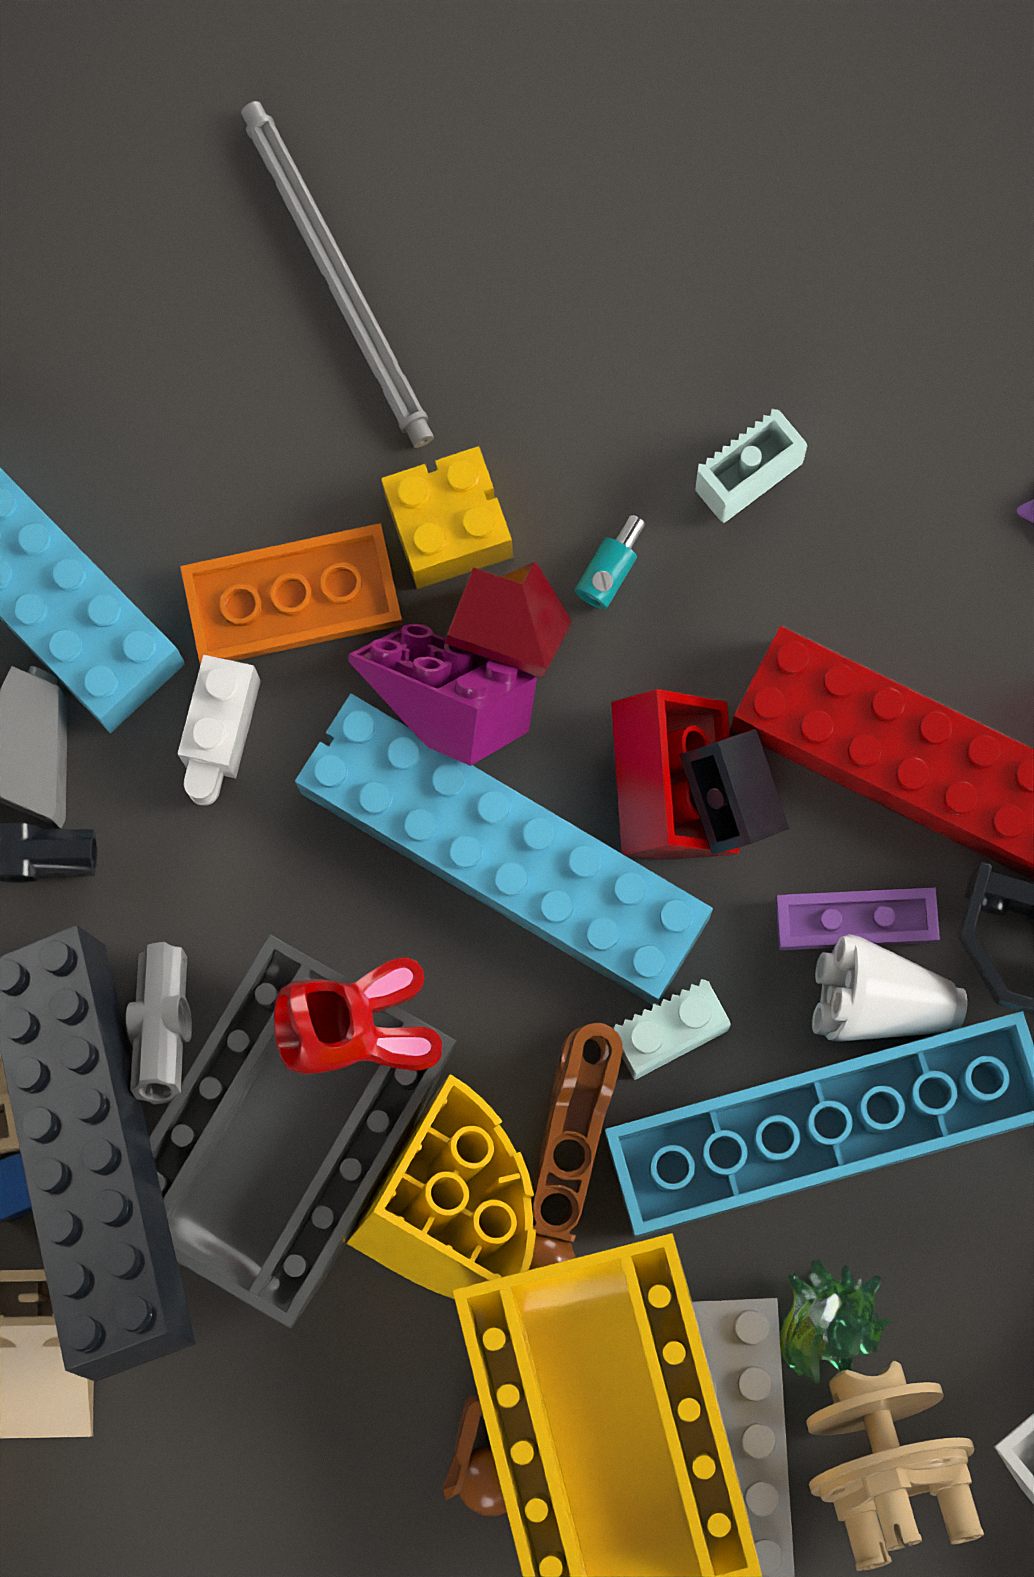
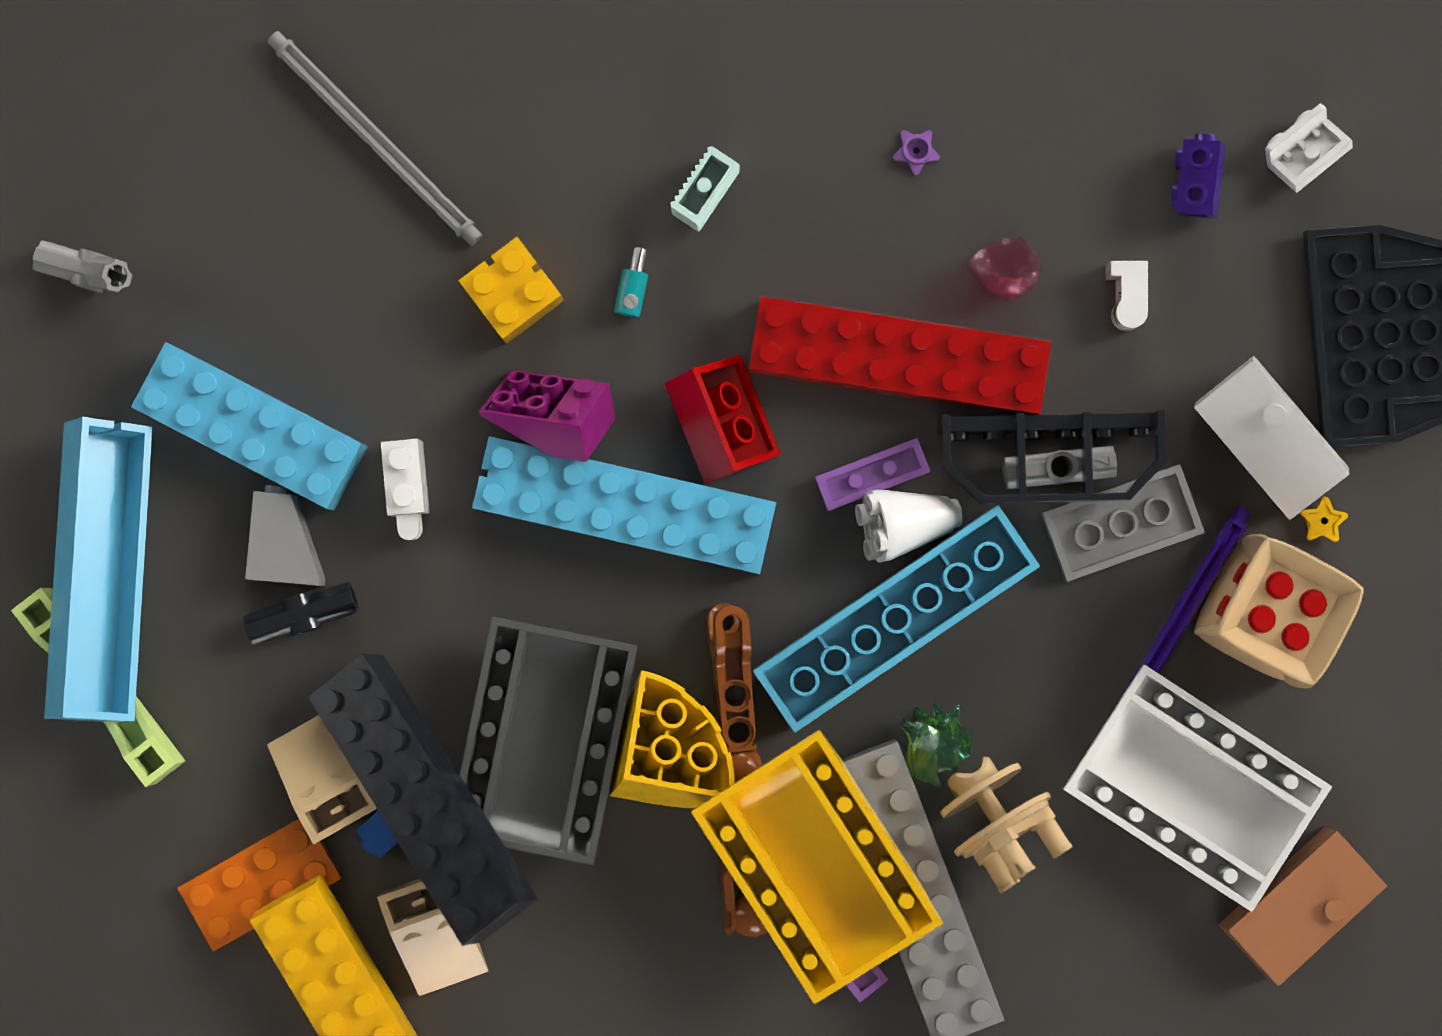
camera: 25 degrees left, 10 degrees up
(159, 1023) = (438, 697): light grey piece -> none
(292, 595) = (423, 377): orange plate -> none
(332, 1026) = (554, 666): red piece -> none
(511, 619) = (579, 349): dark red slope -> none
(672, 1029) = (774, 588): light aqua brick -> none
(734, 791) = (765, 418): black brick -> none

